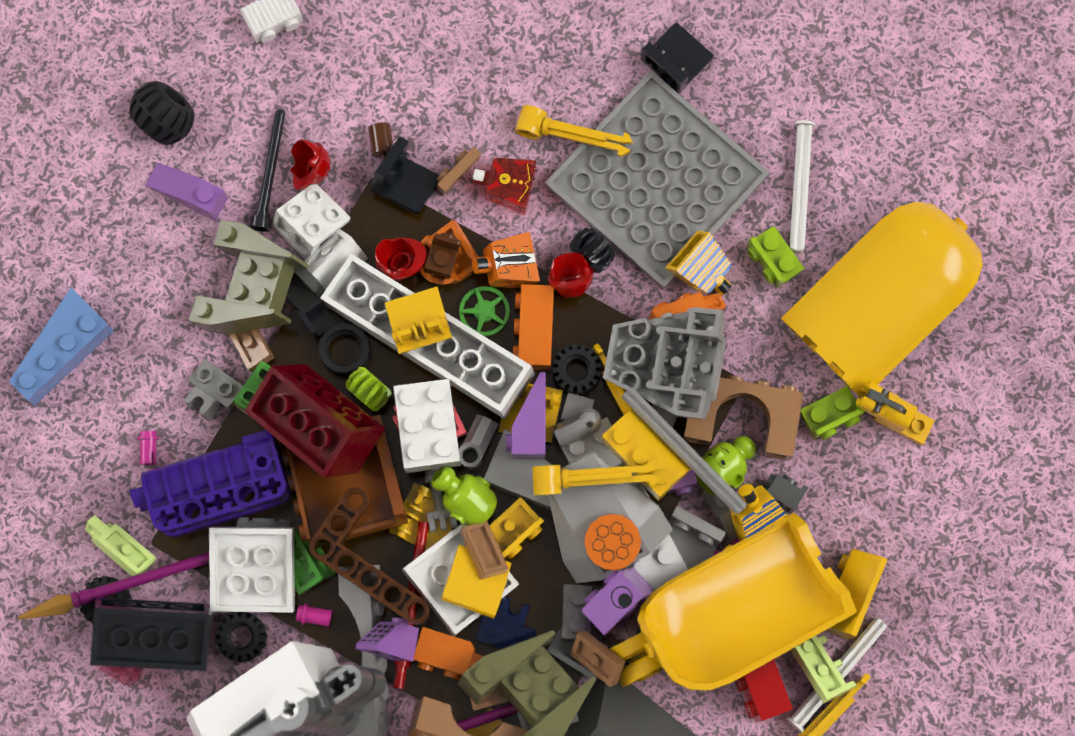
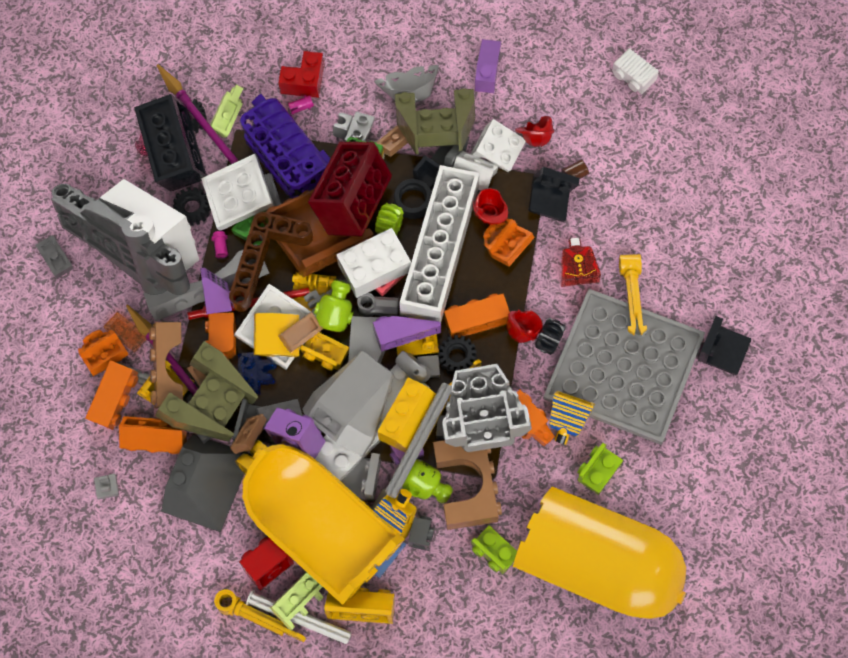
camera: 75 degrees right, 10 degrees down
(60, 347) = (348, 27): medium blue wedge -> none
(116, 427) = (305, 79): none -> red brick
(161, 113) = (535, 29): black wheel -> none
(174, 298) = (410, 83): none -> light grey piece
(260, 220) = (486, 116): black piece -> none
(418, 320) = (445, 228): yellow hinge -> none
(442, 255) = (502, 233): reddish brown bracket -> none
(464, 161) = (580, 230): medium nougat plate -> none
(485, 310) = (476, 280): bright green wheel -> none
(509, 262) = (517, 280): orange torso -> none
(550, 479) = (362, 353): yellow piece -> none
(613, 541) = (333, 410): orange tile -> none
(801, 184) = (663, 470): white axle -> none
(895, 413) = (511, 593): yellow plate -> none

